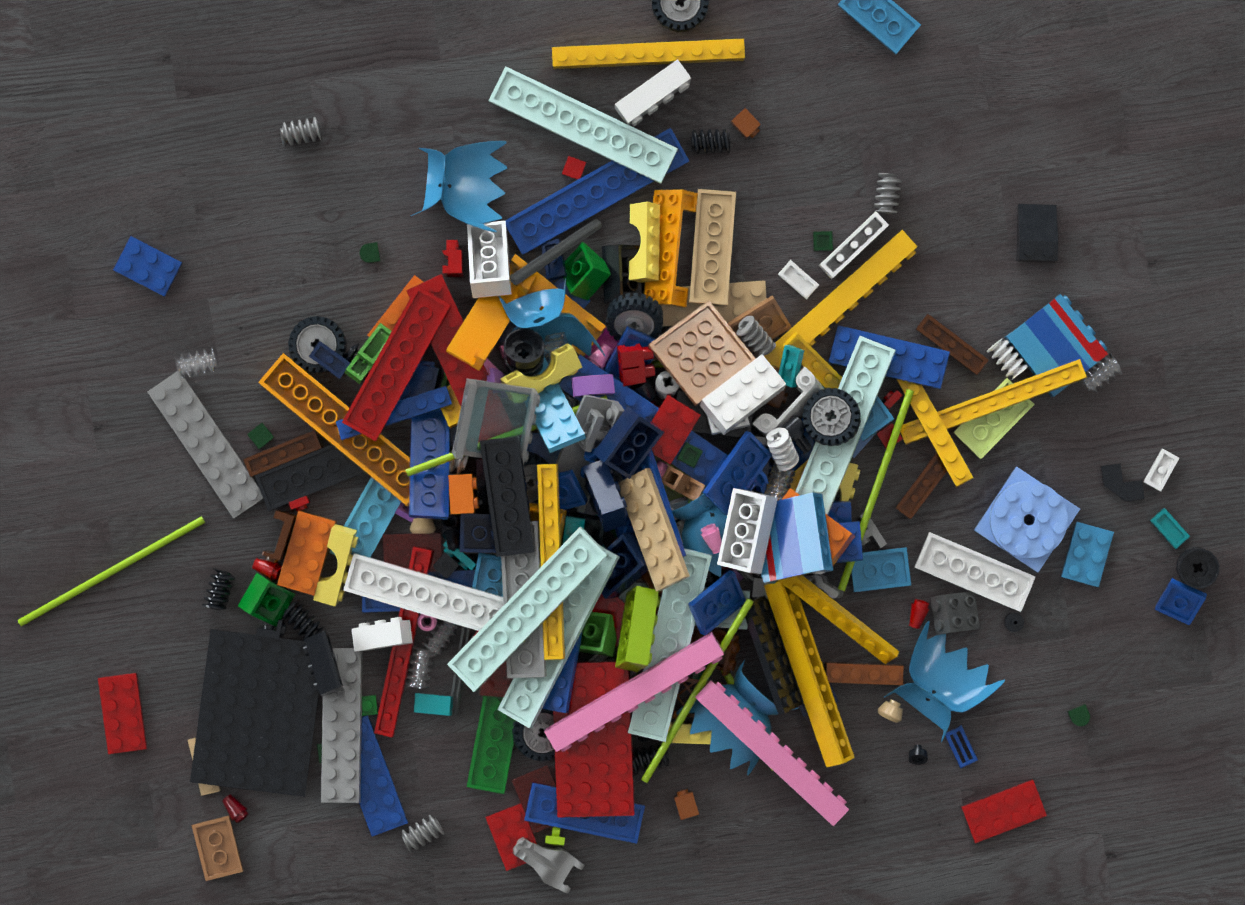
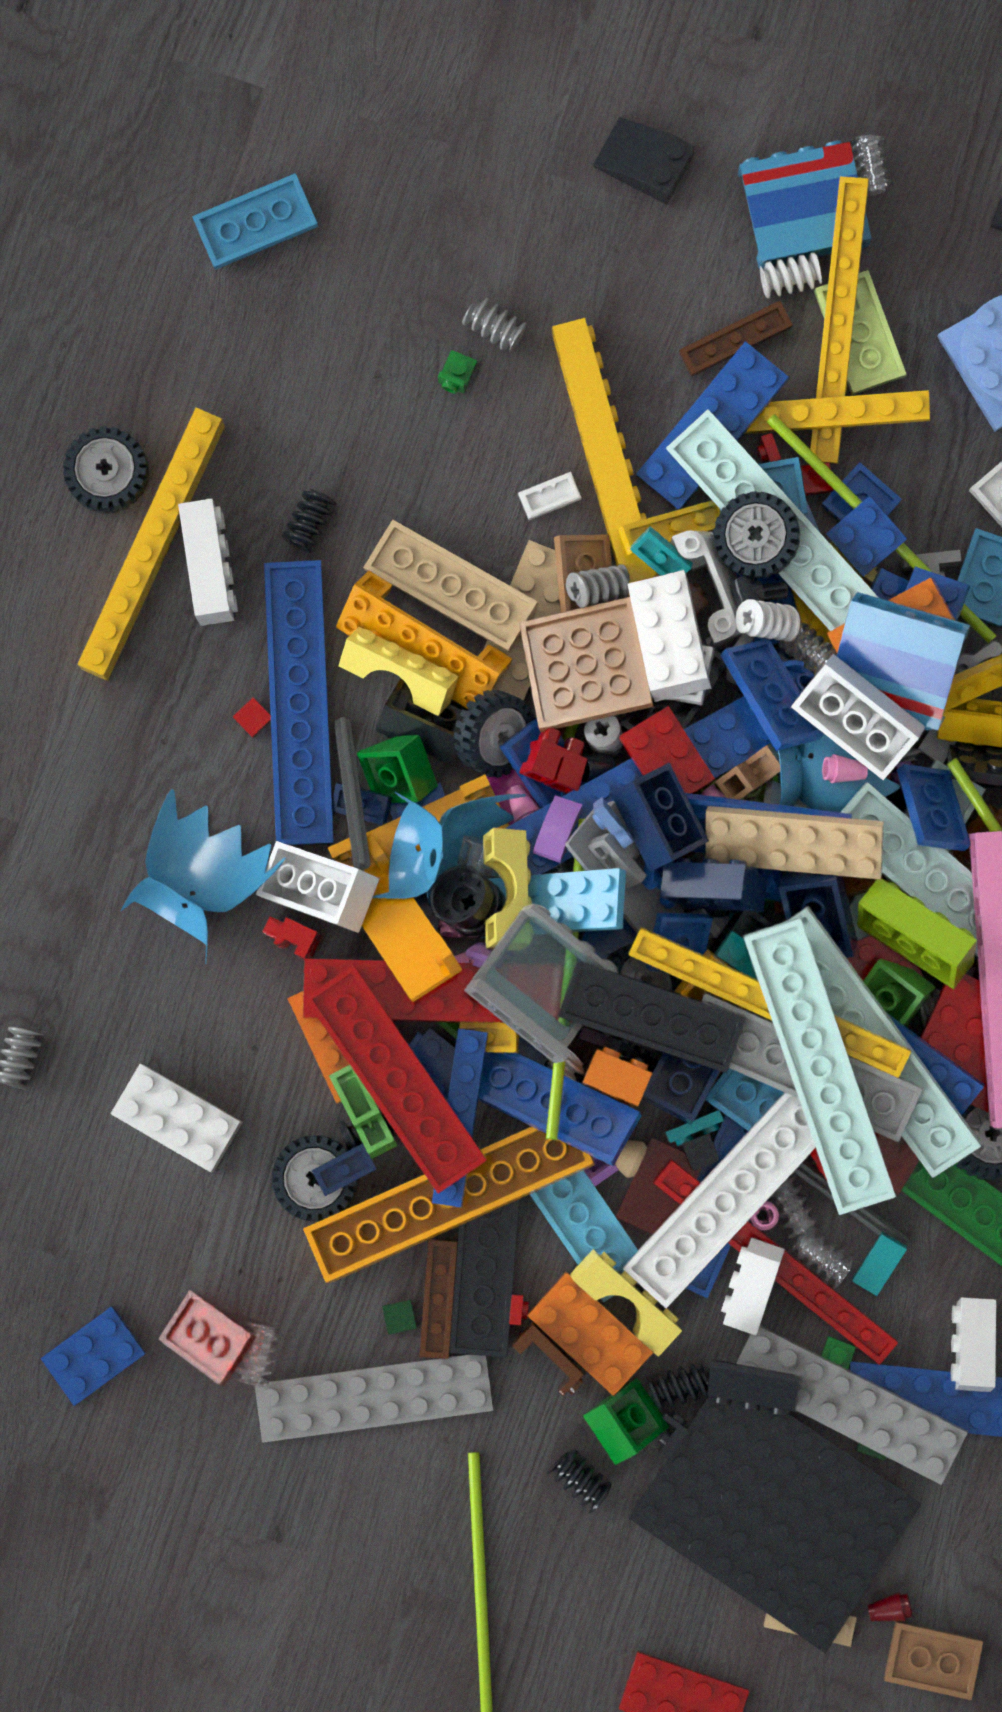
camera: 65 degrees left, 5 degrees down
(191, 328) = (207, 1338): none -> clear red plate
(268, 569) = (584, 1398): red cone -> none
(311, 244) = (176, 1118): none -> white brick
(370, 252) = (228, 1045): dark green tile -> none
(413, 782) = (974, 1344): none -> white brick
(451, 532) = (658, 1123): black axle -> none
(583, 125) = (201, 675): light aqua plate -> none
(611, 412) = (607, 818): none -> medium blue plate
(689, 455) = (714, 747): dark green tile -> none
(746, 124) = (310, 462): dark orange brick -> none
(823, 241) = (514, 440): dark green tile -> none
(846, 185) = (457, 372): none -> green bracket
(853, 245) = (540, 400): white brick -> none
(866, 483) = (866, 536): none -> blue plate
(896, 471) = (862, 484): none -> blue plate
(922, 487) = (905, 468): reddish brown plate -> none

